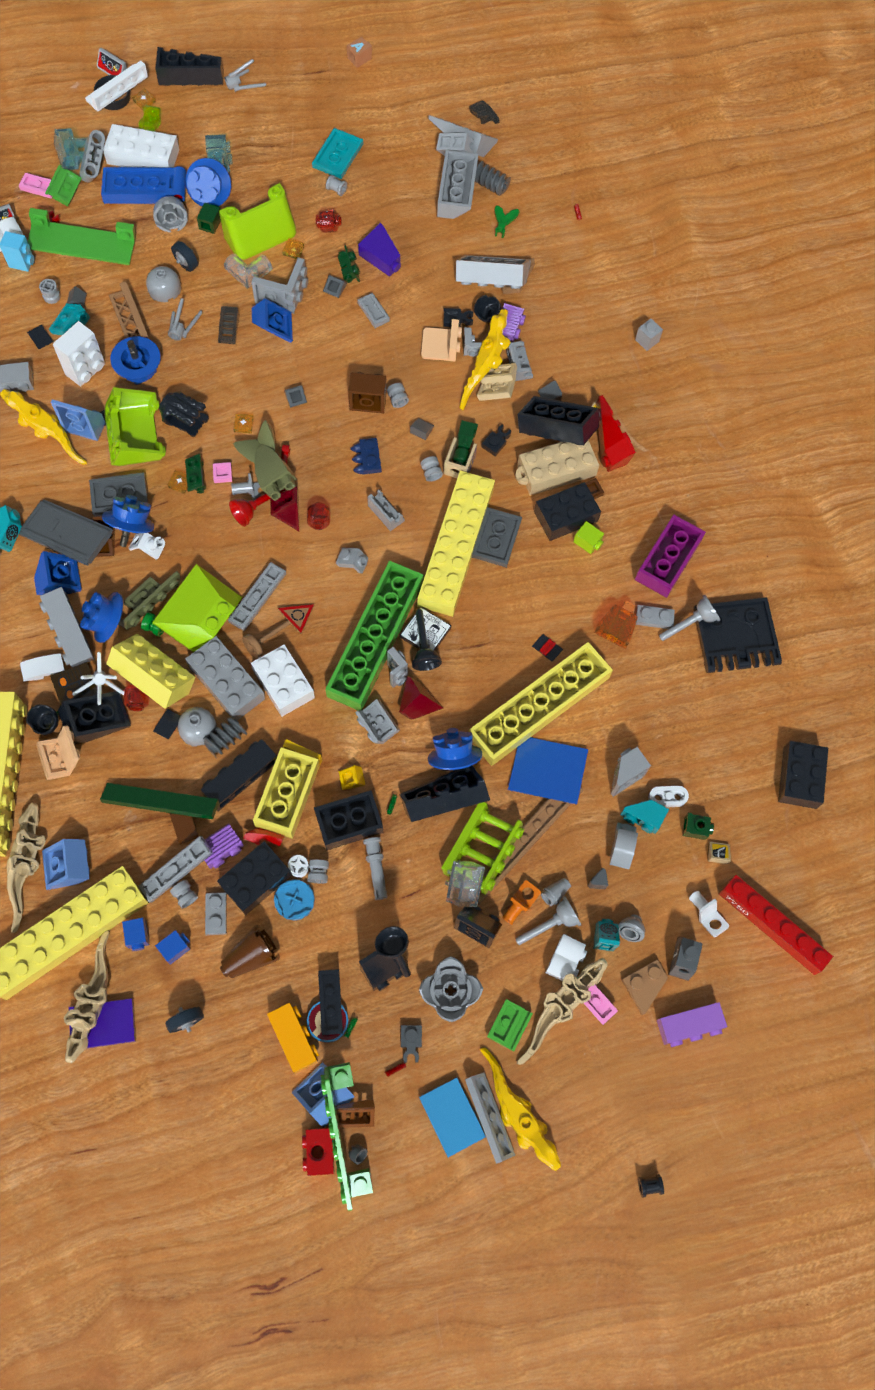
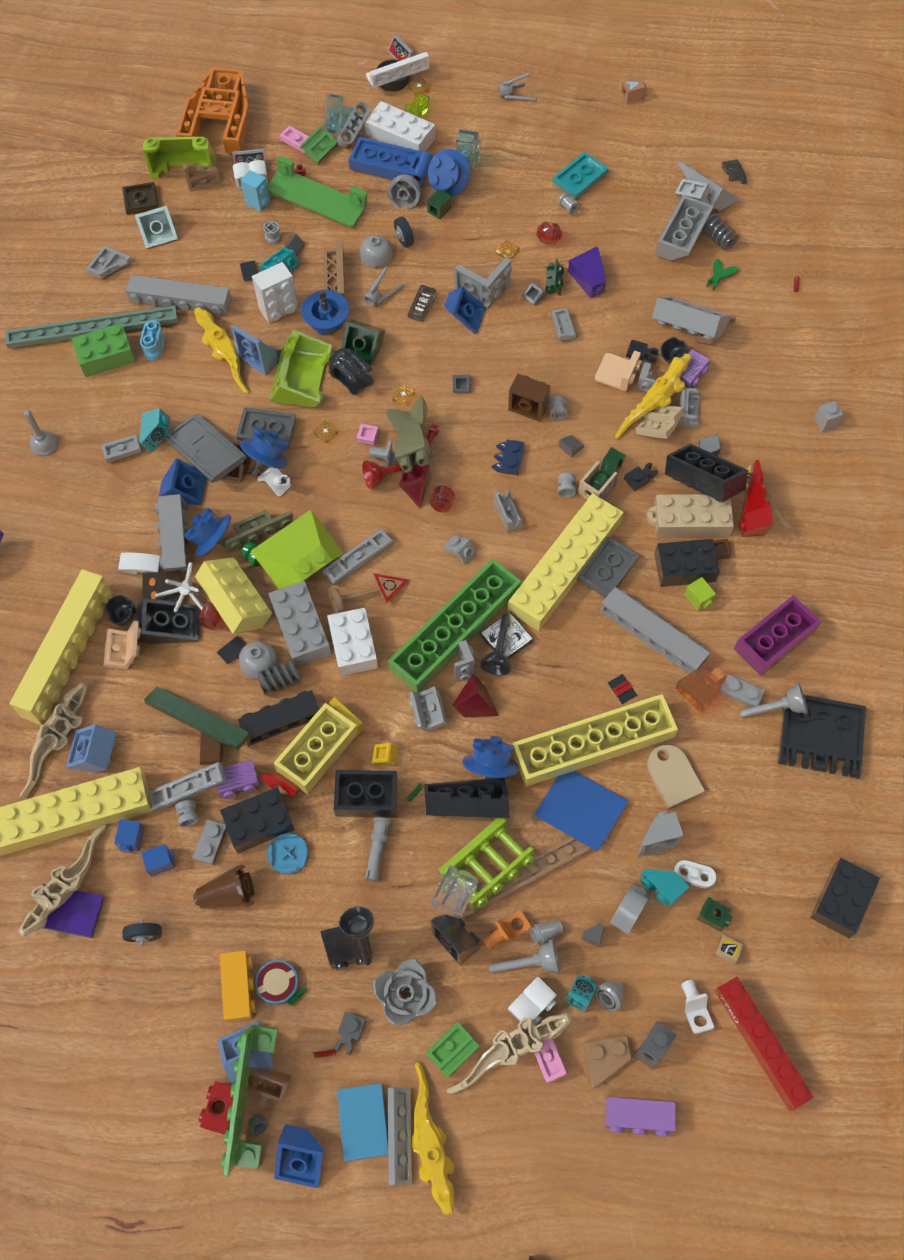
camera: 25 degrees right, 5 degrees down
(183, 377) = (363, 339): none -> dark green slope
(188, 69) = (467, 69): black wedge -> none
(194, 474) = (341, 427): dark green hinge -> none
(245, 273) = (451, 256): clear brick -> none
(259, 227) = (483, 221): lime windscreen -> none
(298, 861) = (302, 818): white wheel -> none
(318, 871) = (319, 833): light grey wheel -> none
(330, 1002) = (284, 964): black plate -> none
(407, 1168) = (298, 1157): none -> blue slope
(559, 585) = (654, 631): none -> light grey brick
(620, 714) = (673, 777): none -> tan tile

